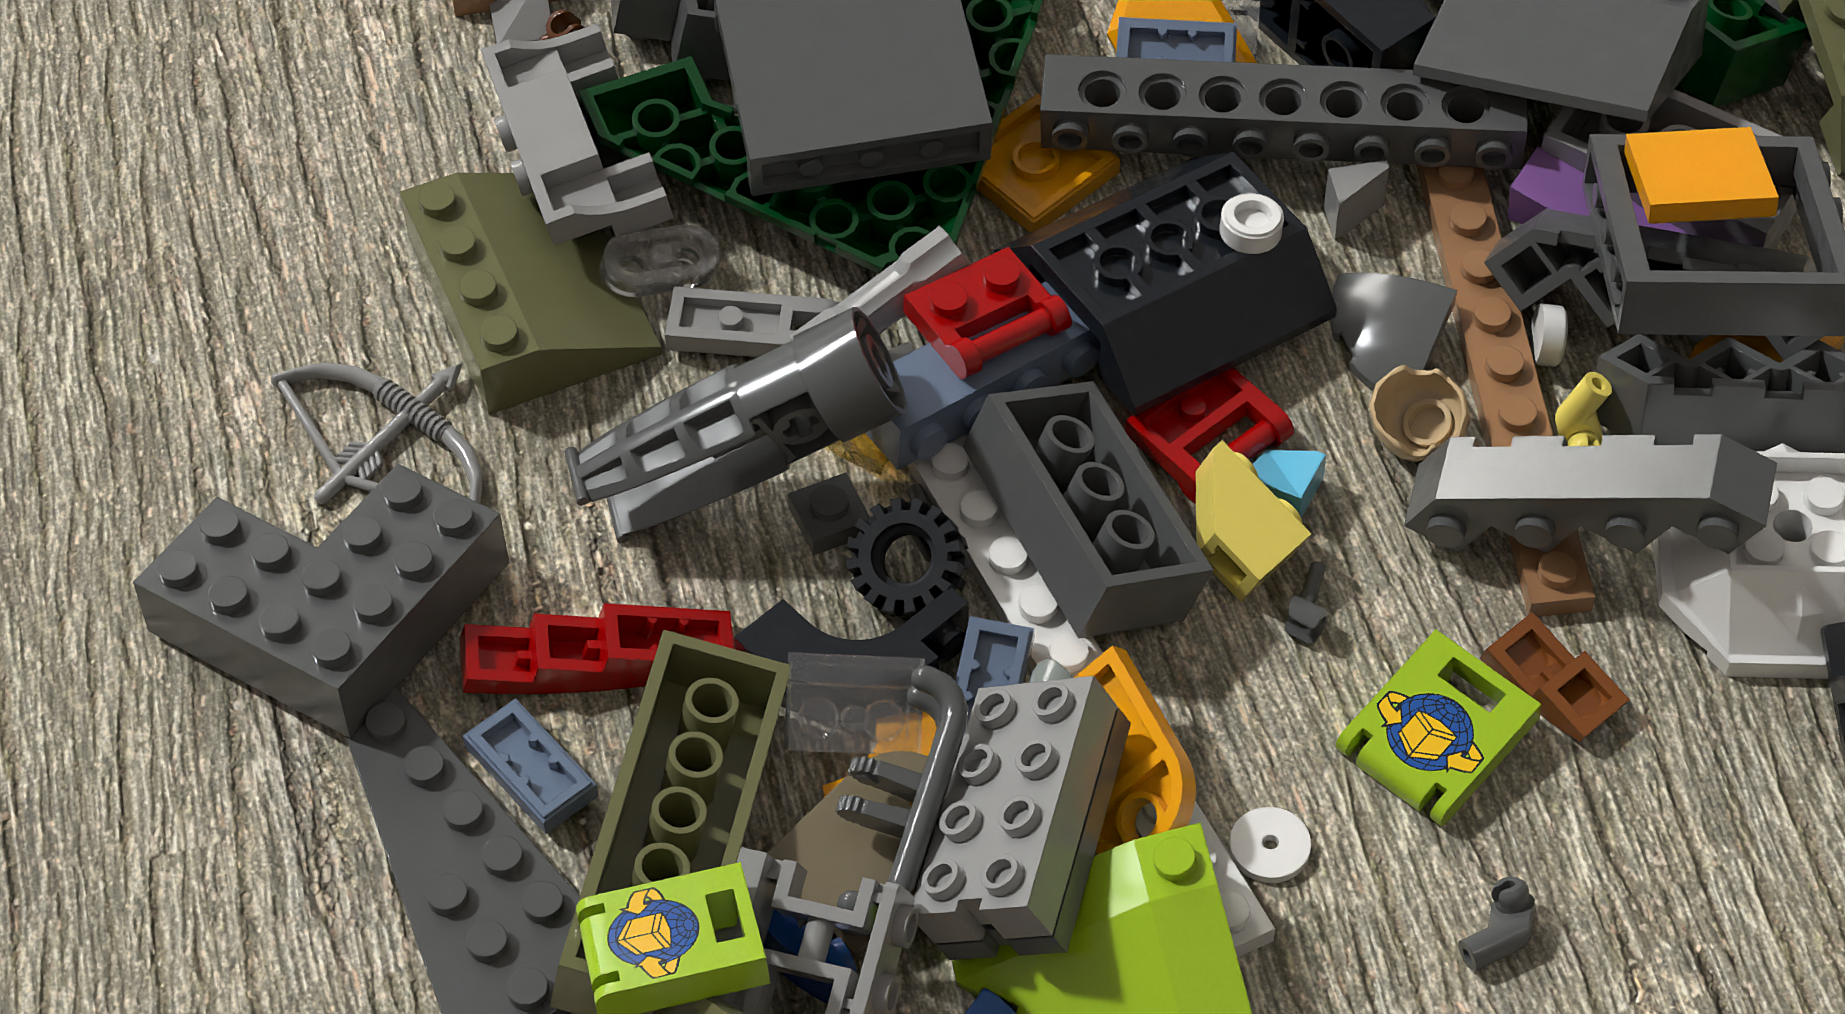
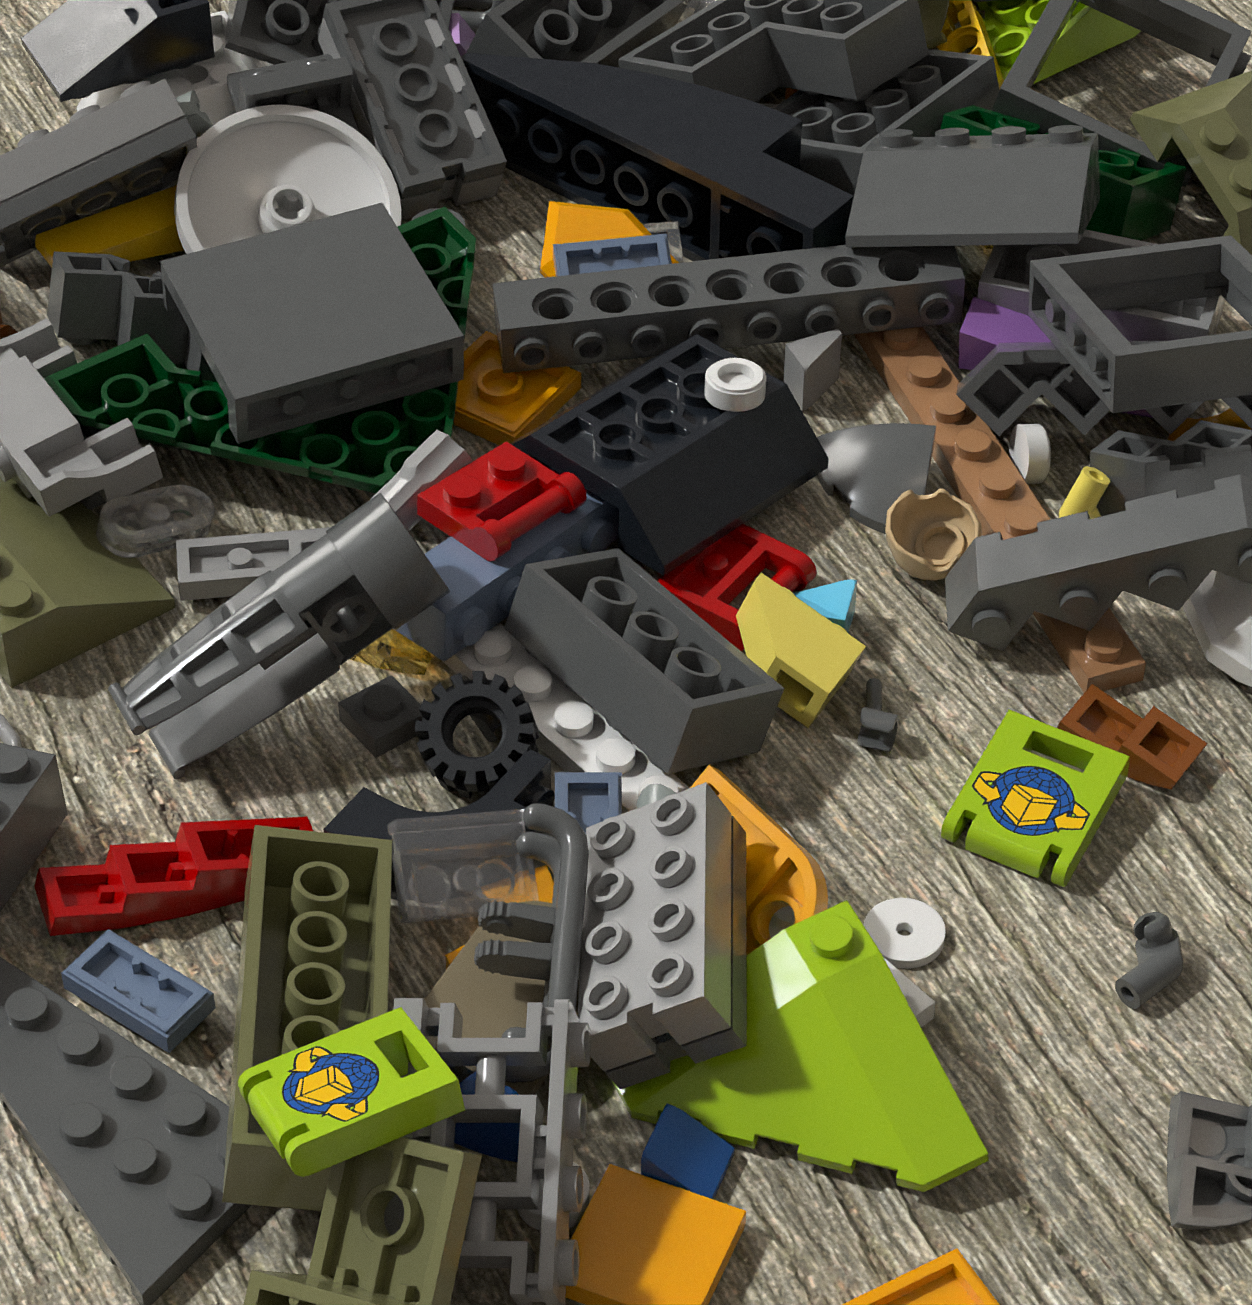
camera: 15 degrees left, 10 degrees down
(1701, 175) = (1147, 271): light orange tile -> none

